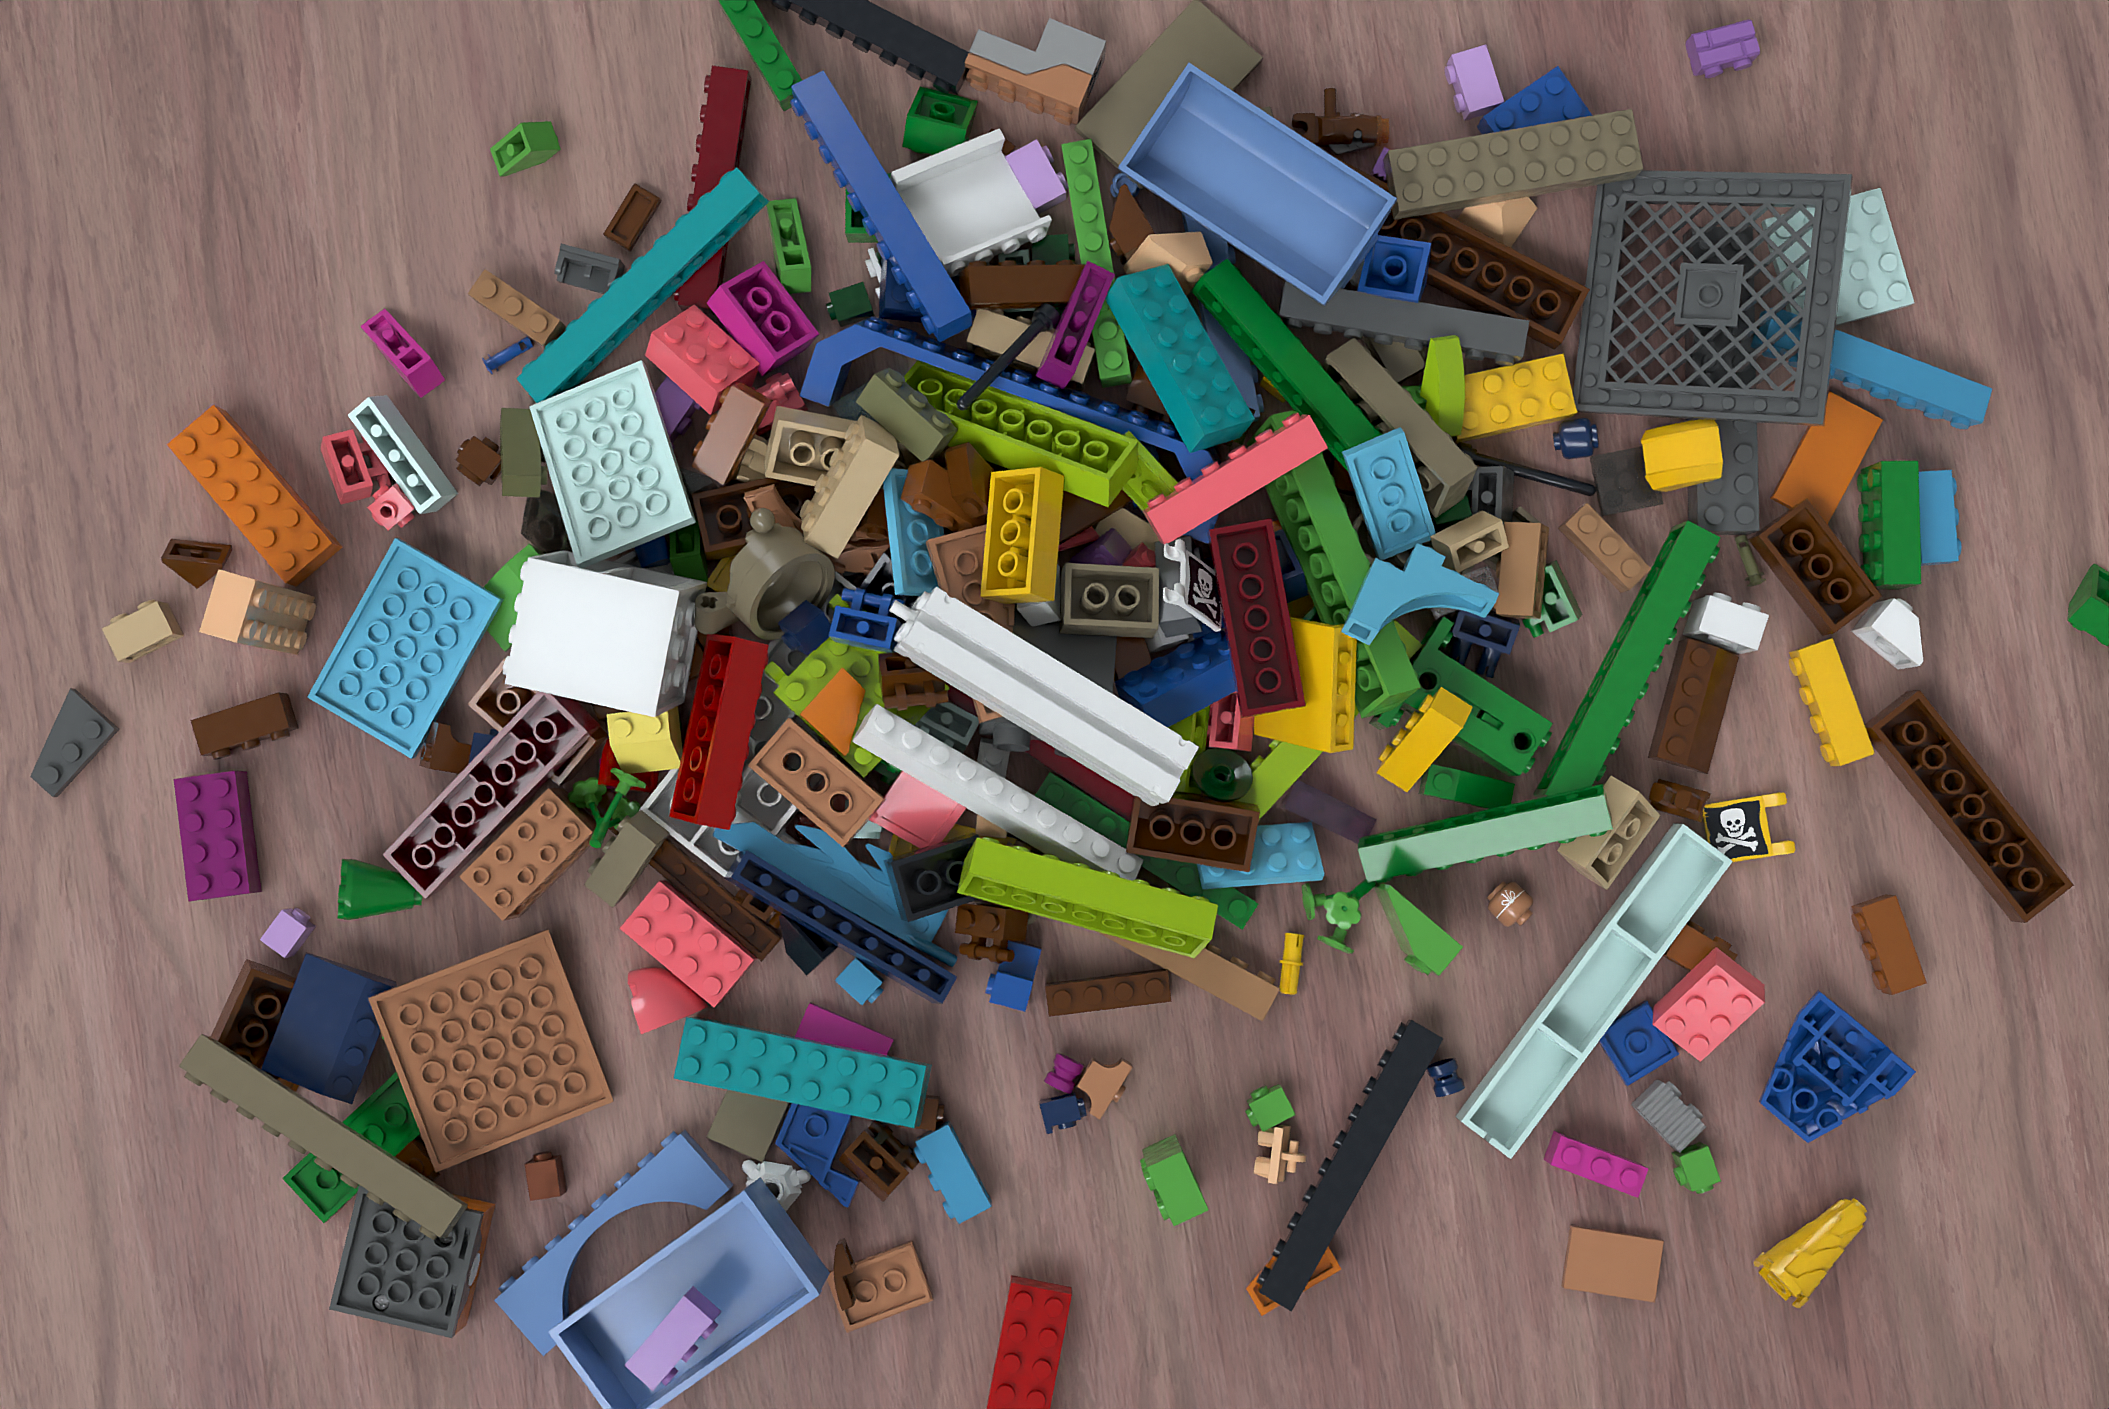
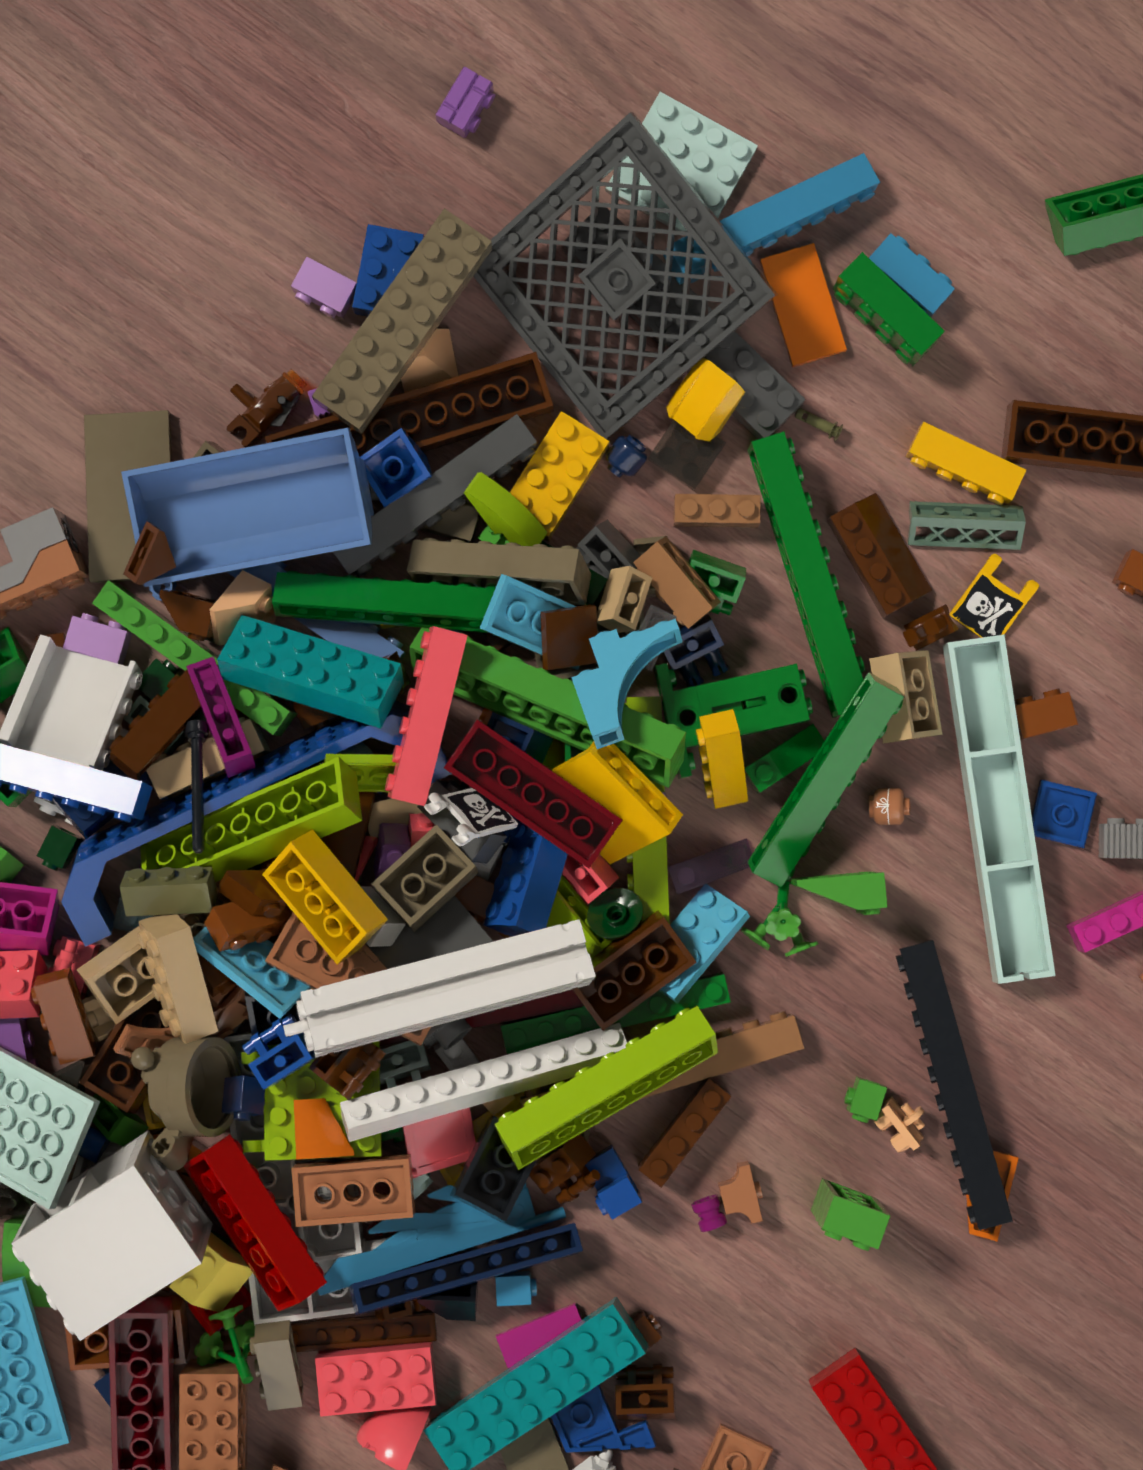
camera: 40 degrees left, 0 degrees up
(443, 751) = (86, 1417): reddish brown brick -> none
(952, 1173) = (702, 1352): dark azure brick -> none
(1062, 1111) = (732, 1239): dark blue brick -> none
(1147, 148) = (150, 556): none -> reddish brown slope
(1291, 963) = (785, 989): yellow axle -> none
(1399, 527) = (567, 636): none -> reddish brown tile
(1445, 1077) = (960, 962): dark blue wheel -> none
(1528, 472) = (569, 538): black piece -> none
(1708, 1004) = (1082, 744): coral brick -> none
(1726, 624) = (845, 482): white brick -> none
(1791, 743) = (966, 519): none -> sand green fence
(1815, 568) = (866, 386): reddish brown slope -> none
(1892, 632) = (958, 378): white slope -> none

